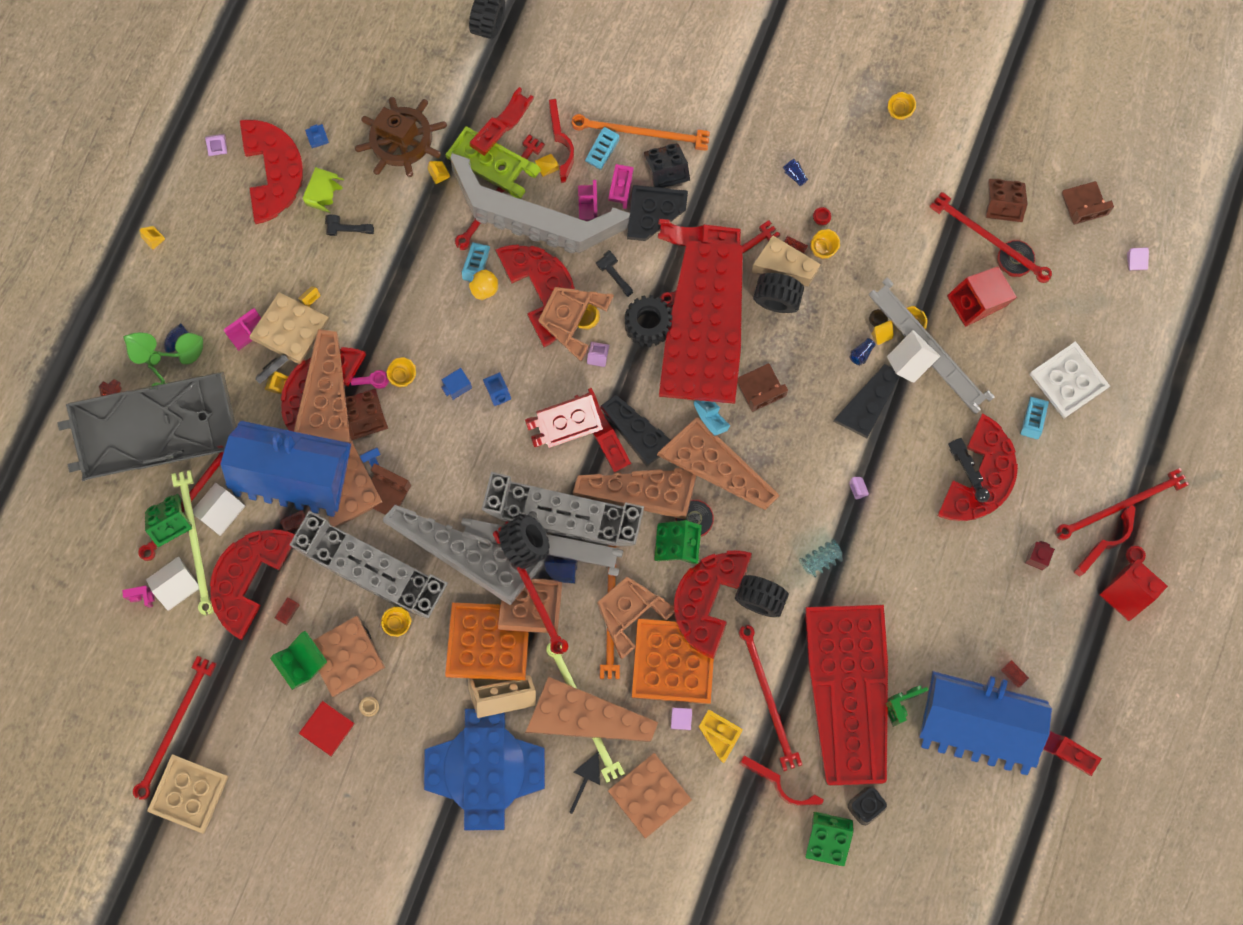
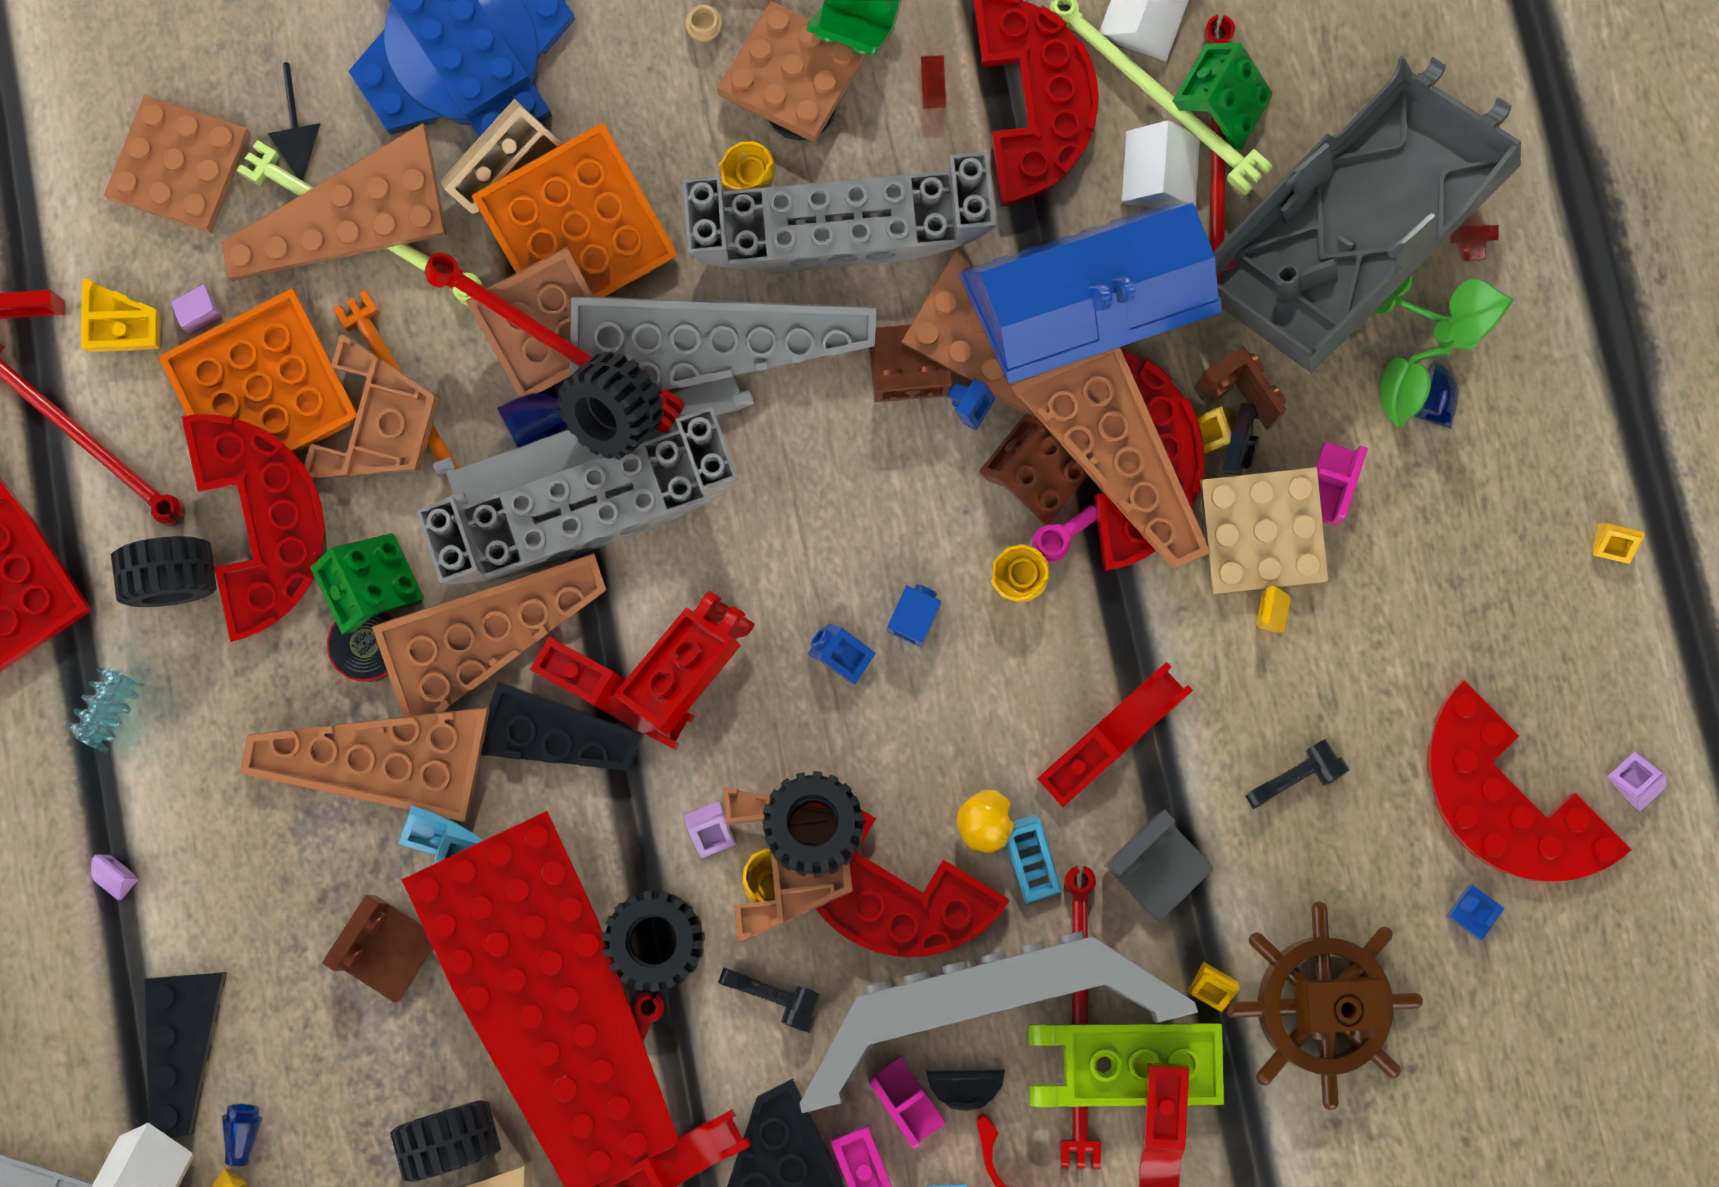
camera: 155 degrees right, 5 degrees up
(254, 395) = (1246, 373): none -> copper bracket
(293, 522) = (1022, 224): clear red piece -> none
(321, 189) = (1394, 810): lime piece -> none
(410, 287) = (1113, 735): none -> red piece
(427, 227) = (1159, 866): none -> dark grey bracket
(547, 165) = (1029, 1129): yellow slope -> none
(548, 302) = (810, 790): none -> black tyre
(562, 194) = (965, 1088): none -> black tile

